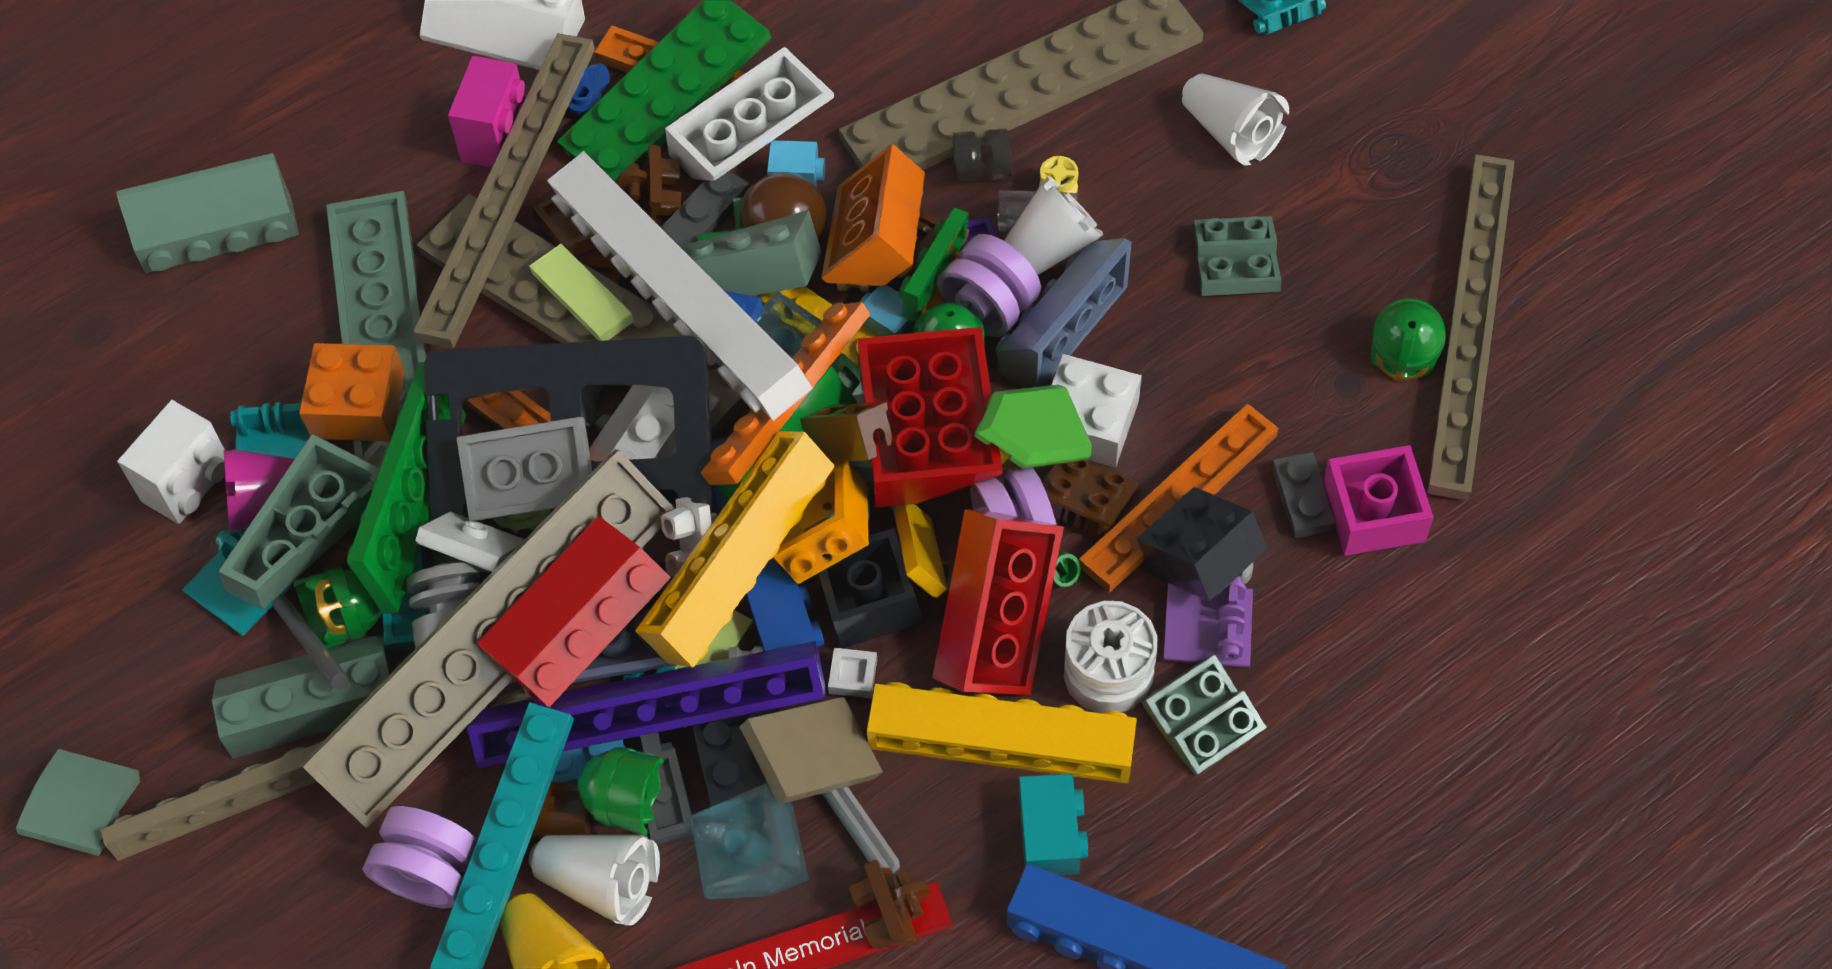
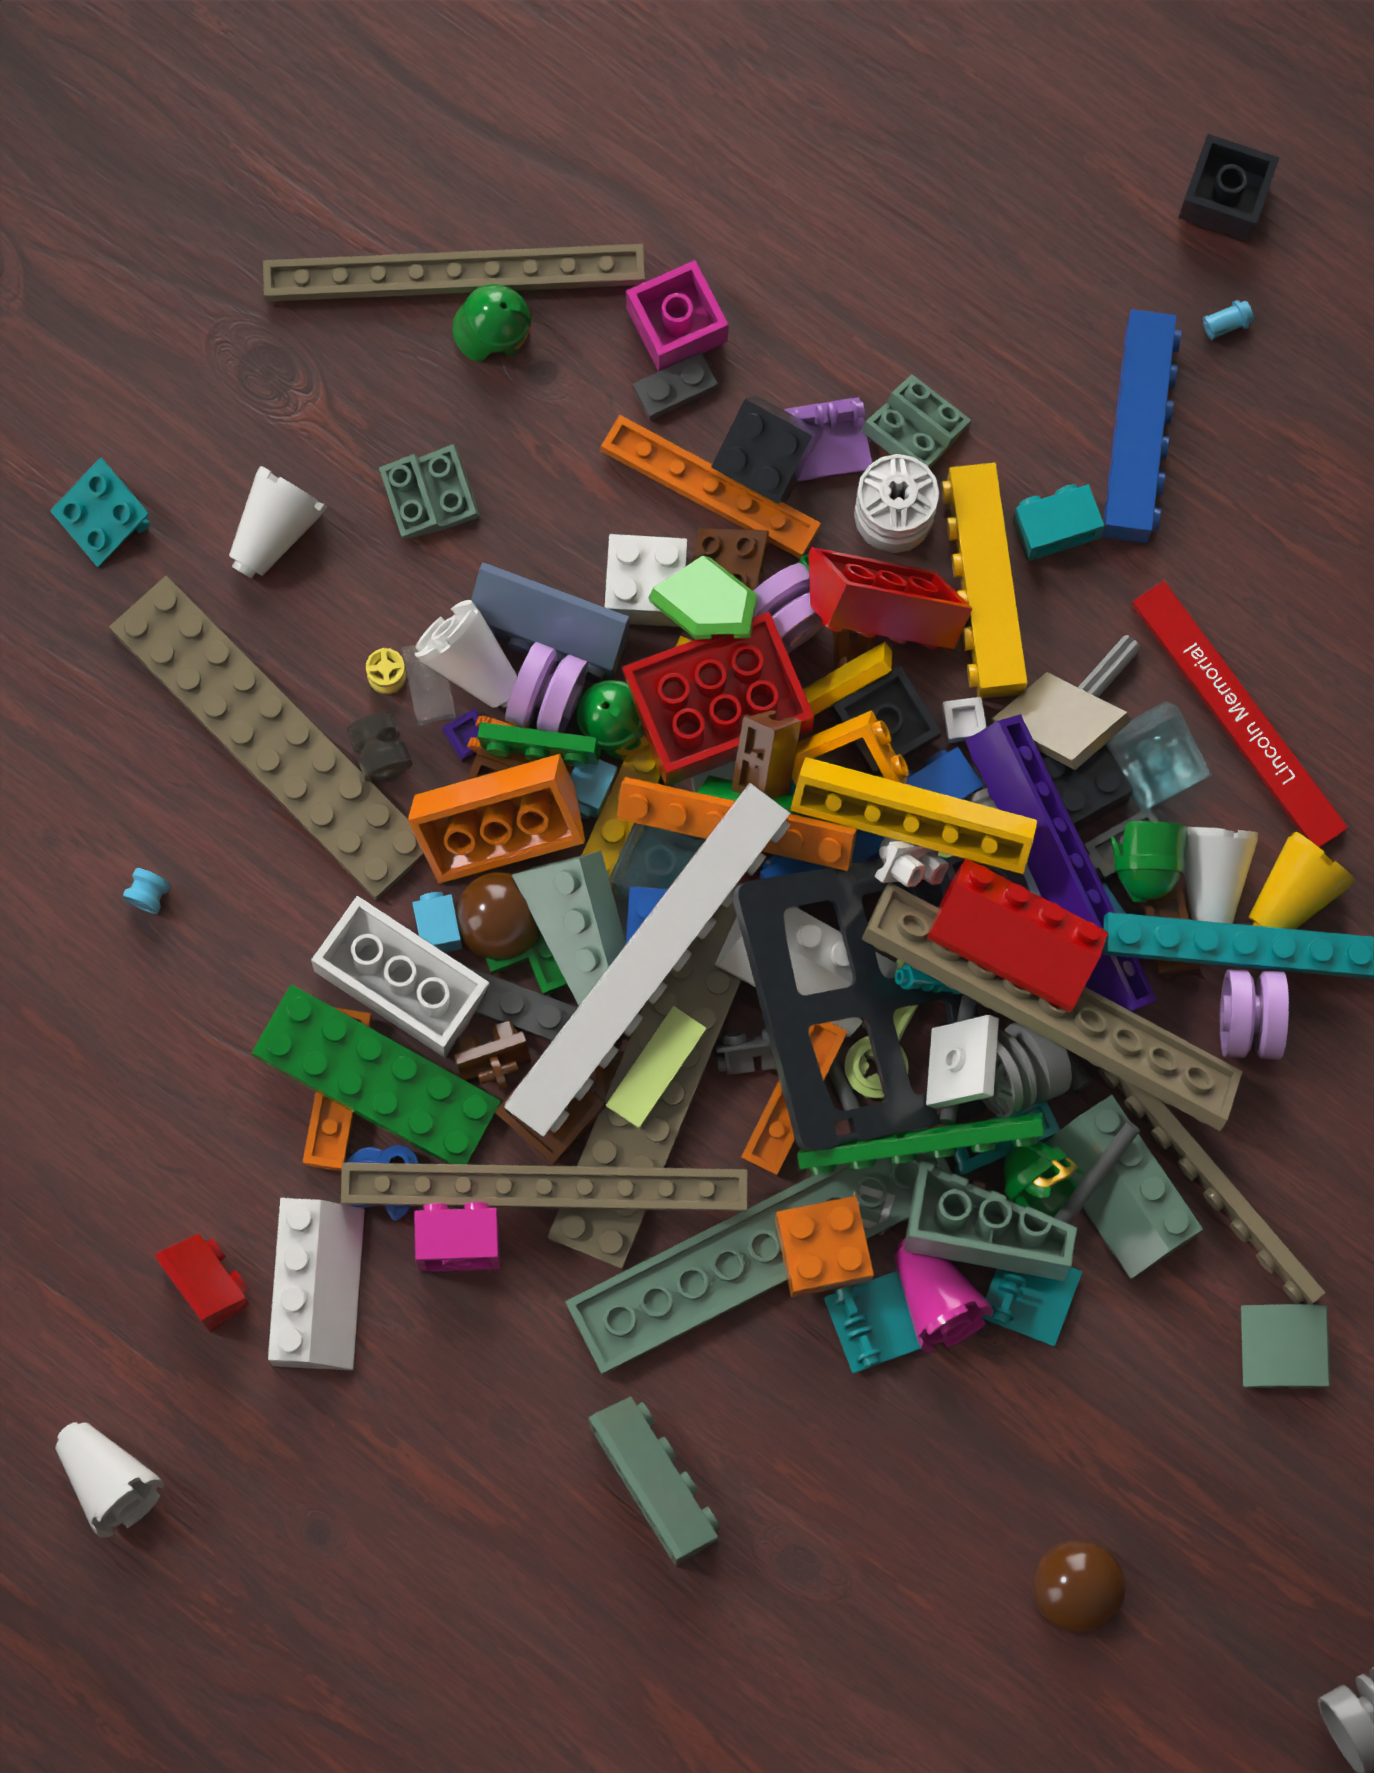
camera: 110 degrees left, 15 degrees up
(174, 462) = (942, 1389): white brick -> none
(523, 467) = (884, 1030): light grey plate -> none
(882, 889) = (1189, 617): reddish brown hips -> none

